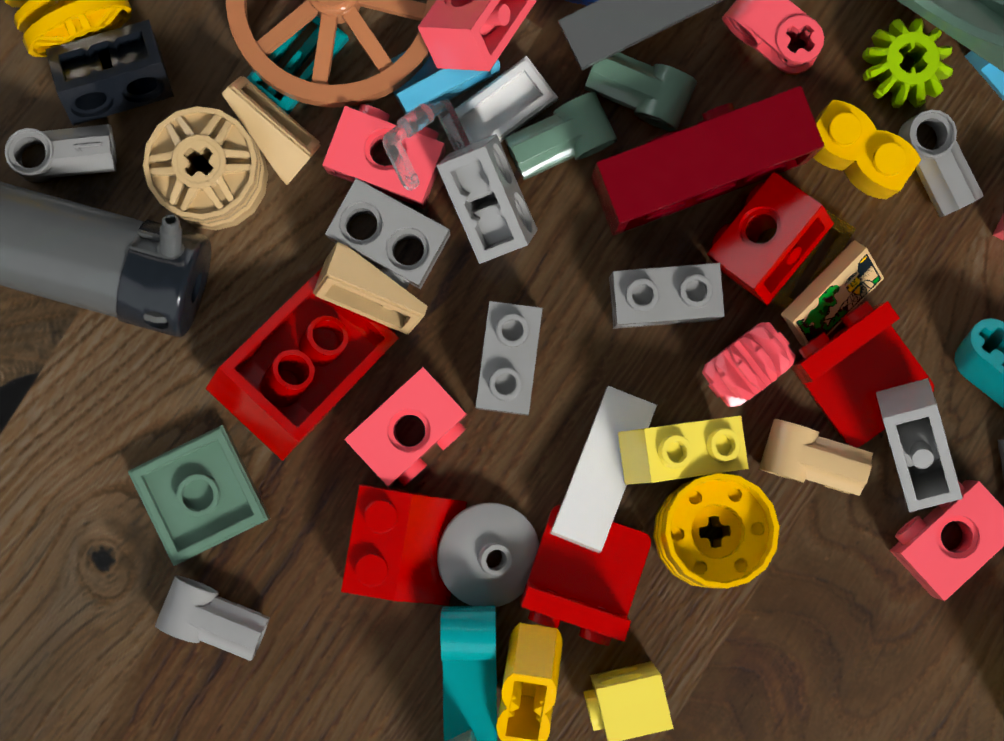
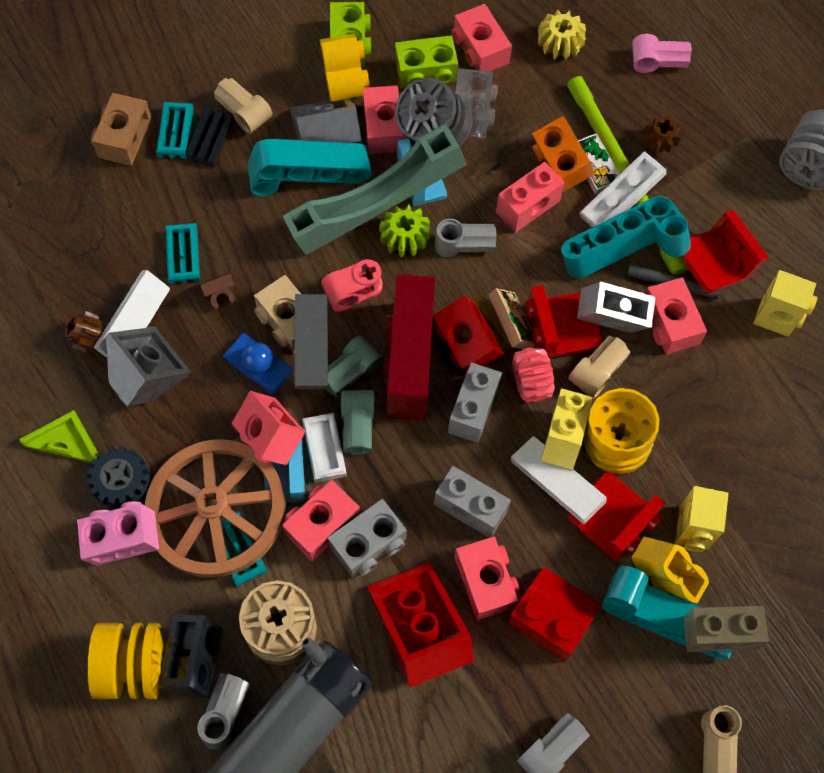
camera: 65 degrees left, 20 degrees down
(199, 495) = (472, 725): sand green tile -> none
(273, 130) = (291, 569): tan slope -> none
(365, 290) = (394, 564): tan slope -> none
(413, 123) = (313, 492): clear piece -> none
(469, 541) = (576, 576): light grey dish -> none
(487, 199) = (375, 469): light grey brick -> none
(871, 158) = (450, 267): yellow brick -> none

